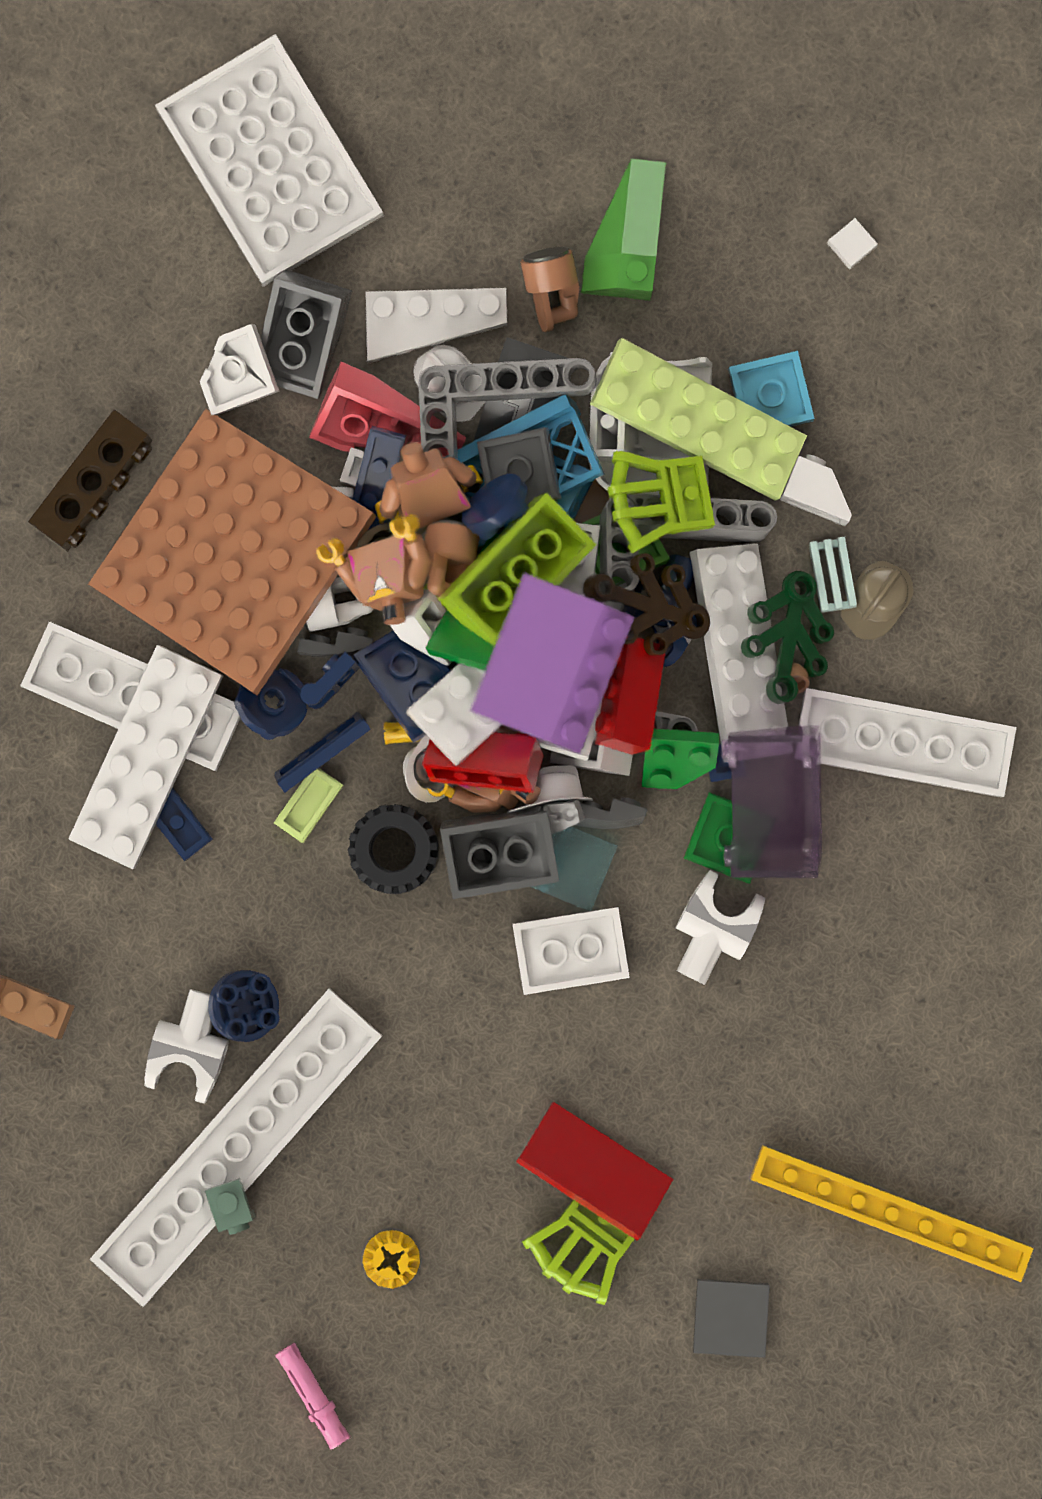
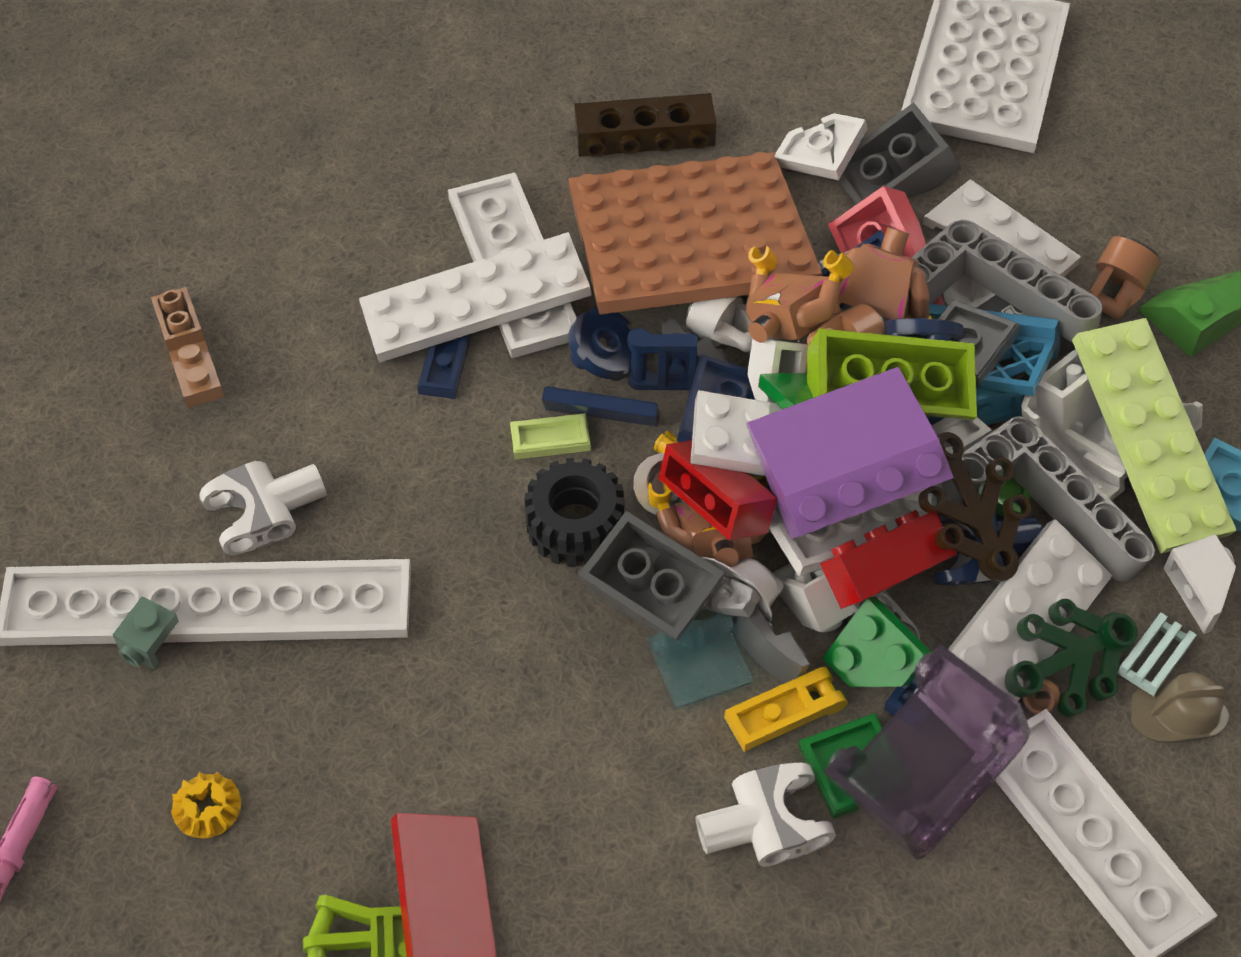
camera: 45 degrees right, 30 degrees down
(244, 1005) = (335, 510): dark blue tile -> none
(571, 951) = (626, 718): white plate -> none
(655, 846) = (784, 708): none -> yellow plate
(681, 490) = (1083, 462): lime plate -> none

